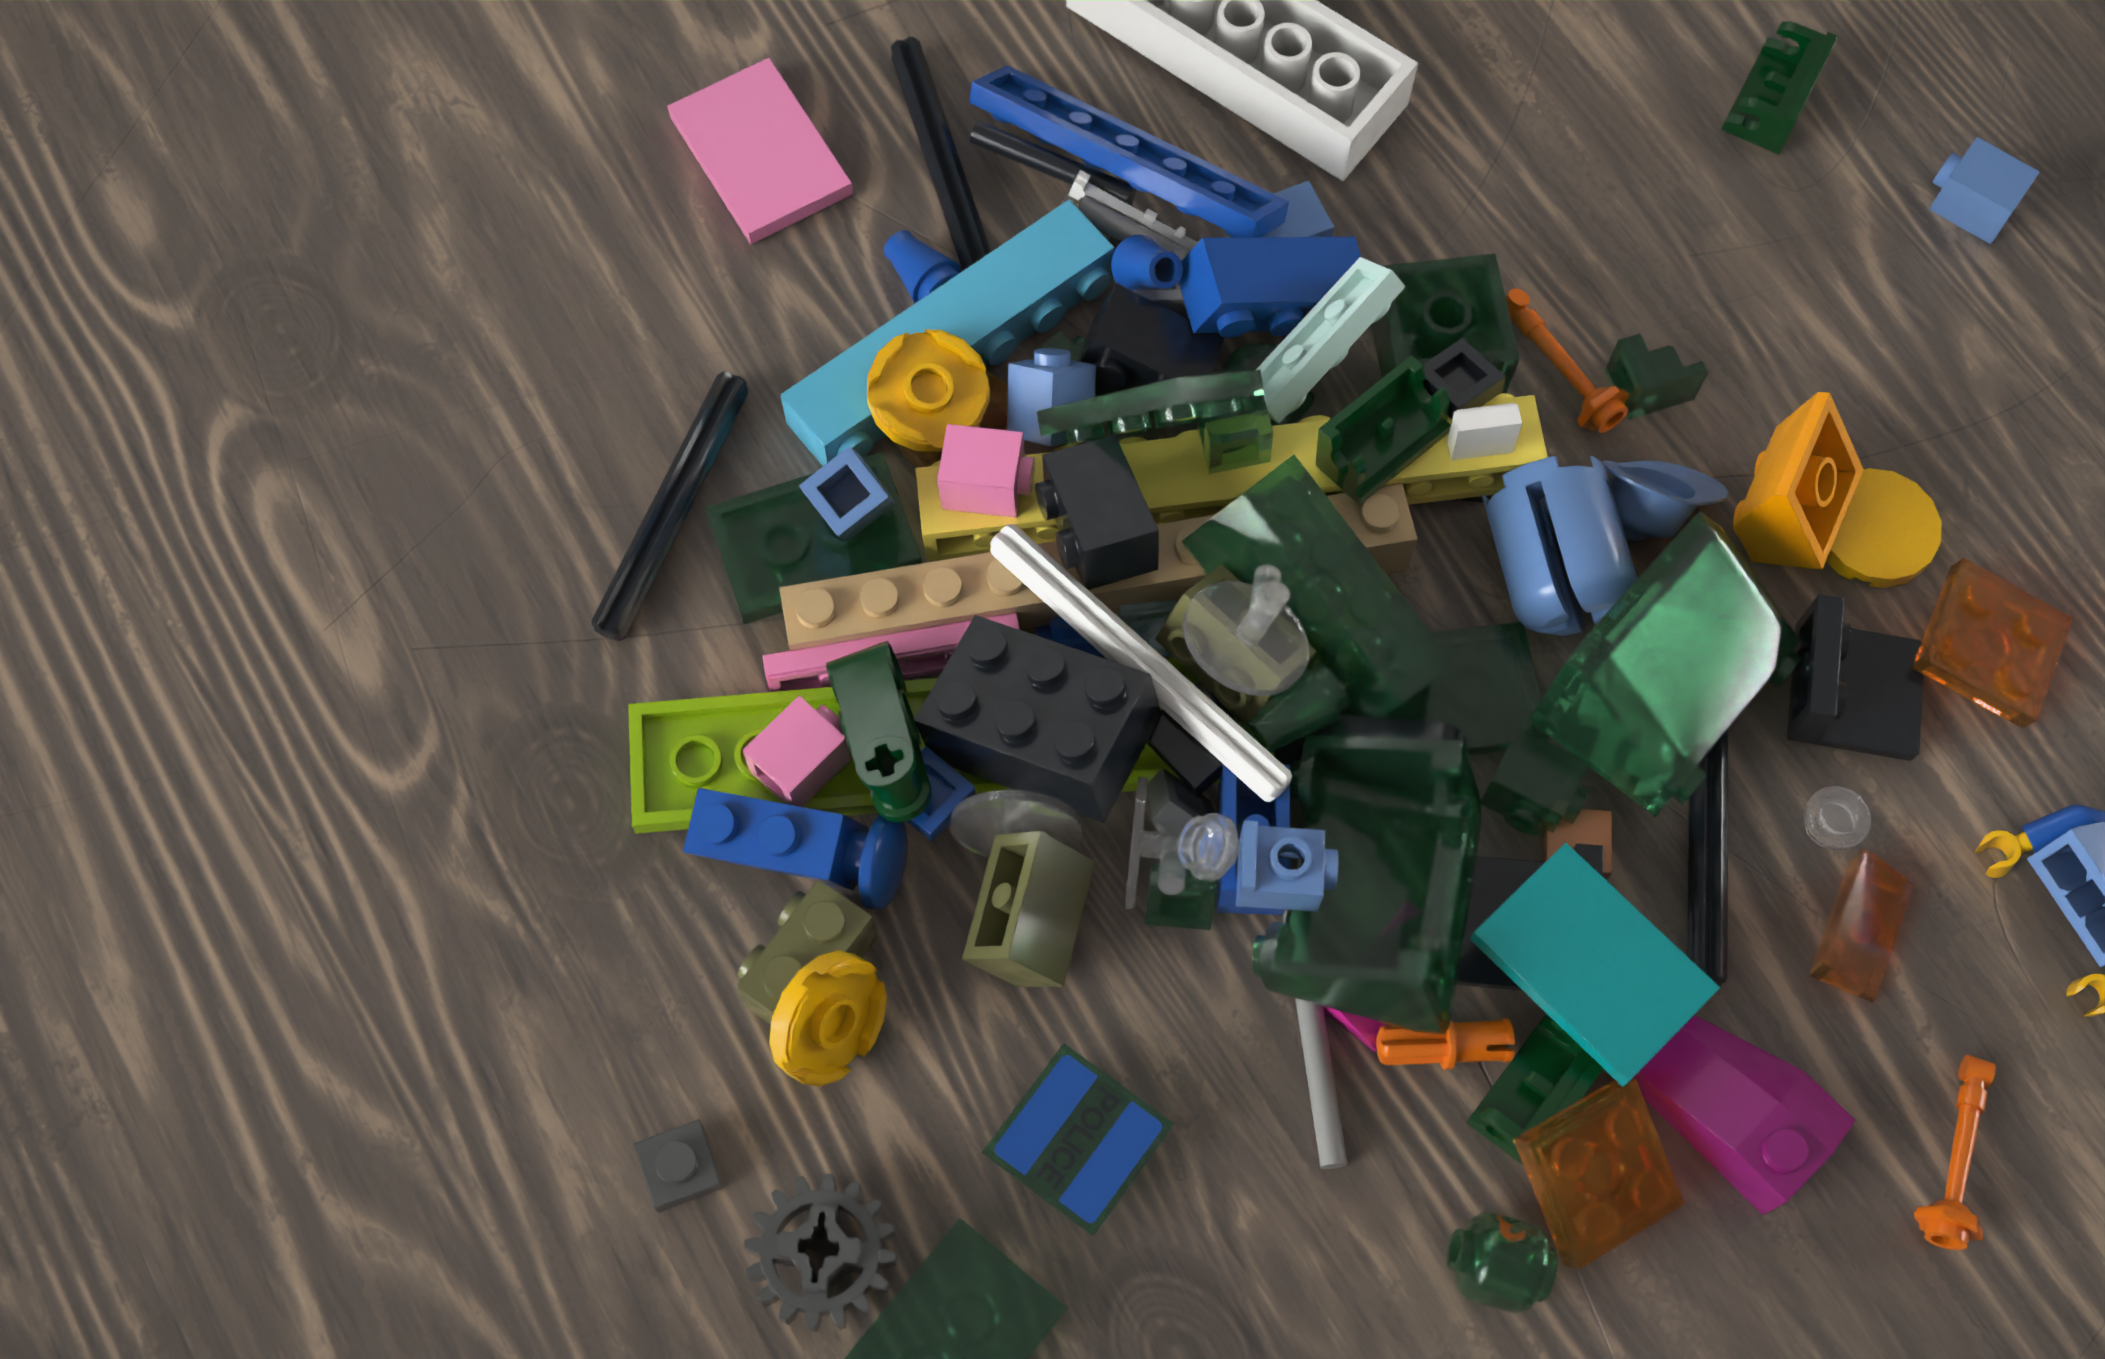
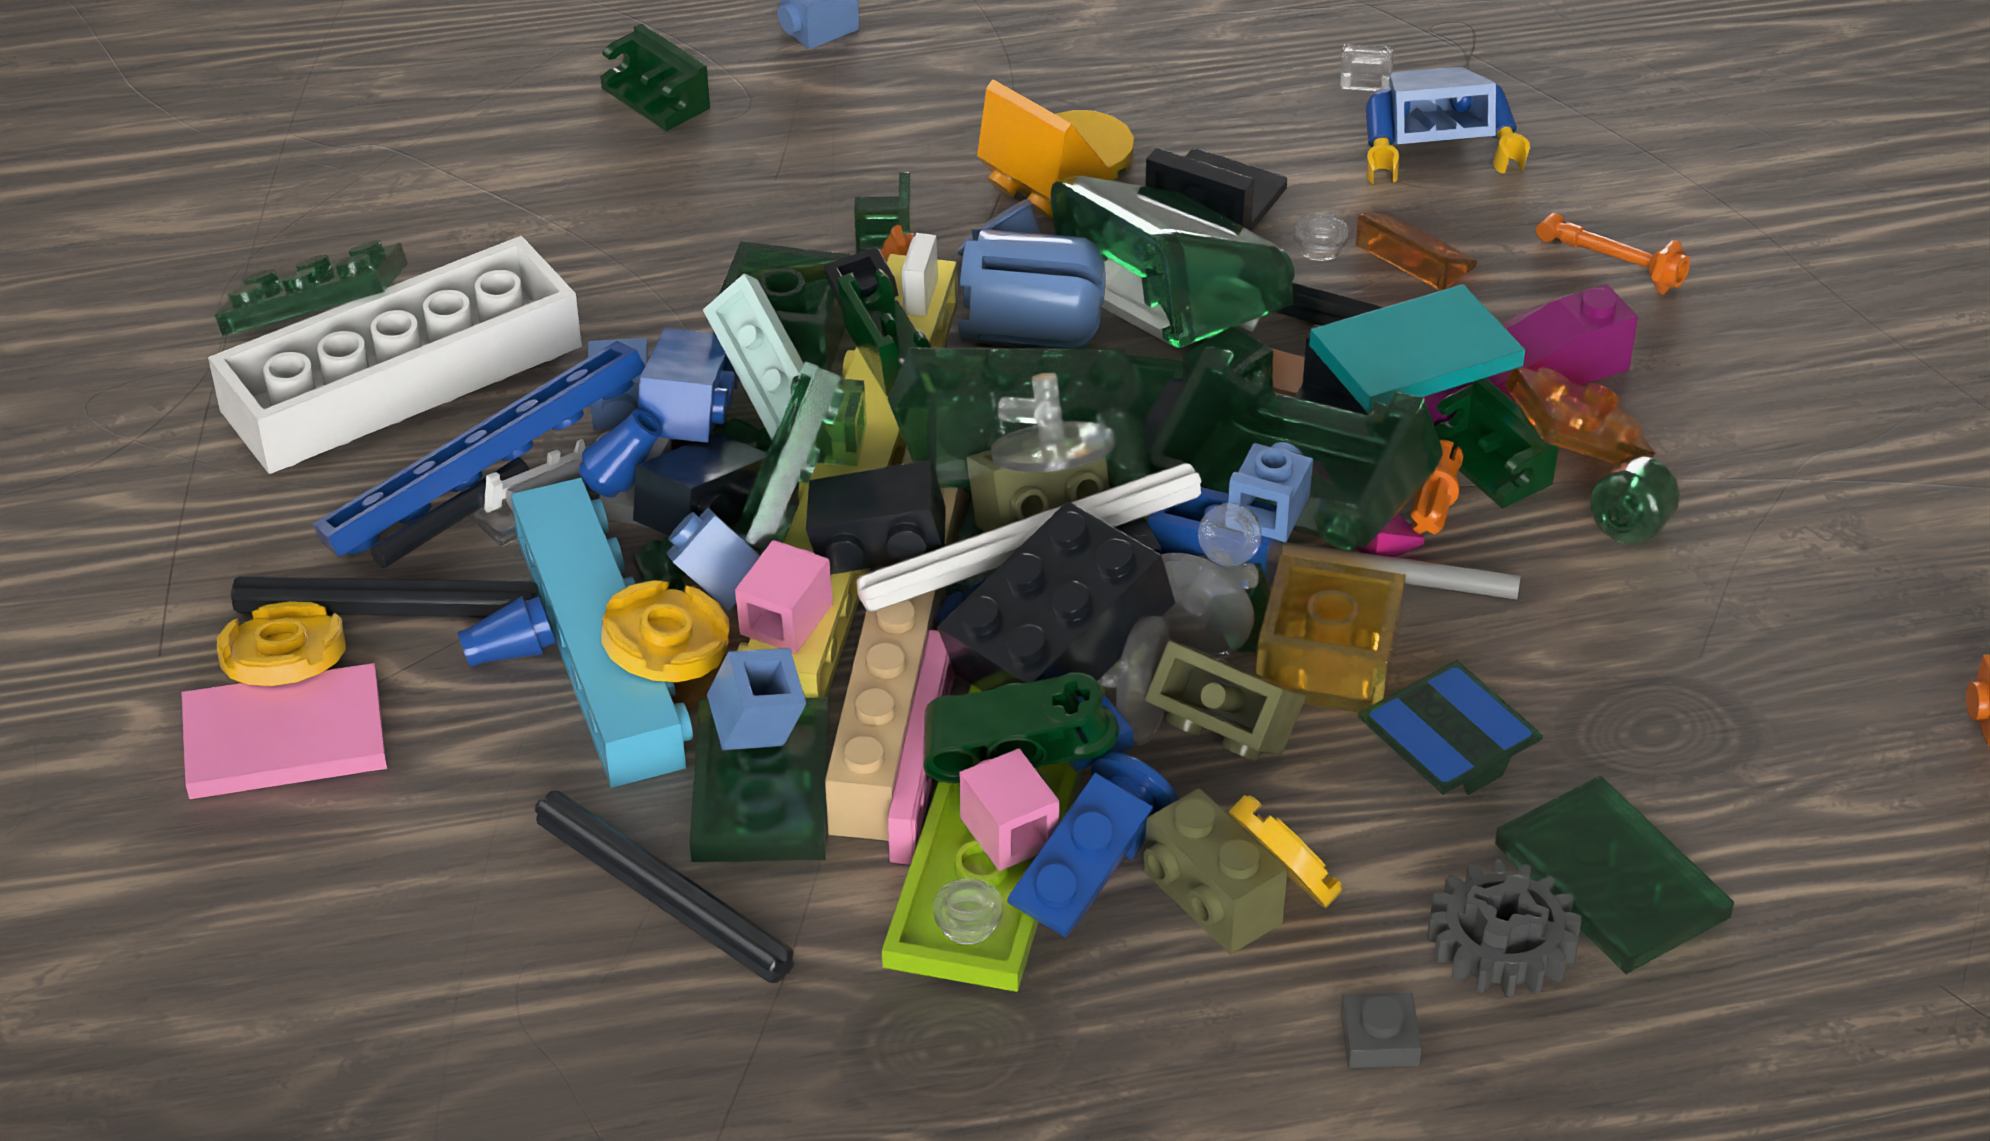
camera: 70 degrees left, 25 degrees down
(676, 758) = (968, 910): none -> clear plate
(849, 105) = (281, 644): none -> yellow tile
(1153, 987) = (1331, 632): none -> clear yellow brick
(1993, 643) = (1210, 115): clear orange plate -> none

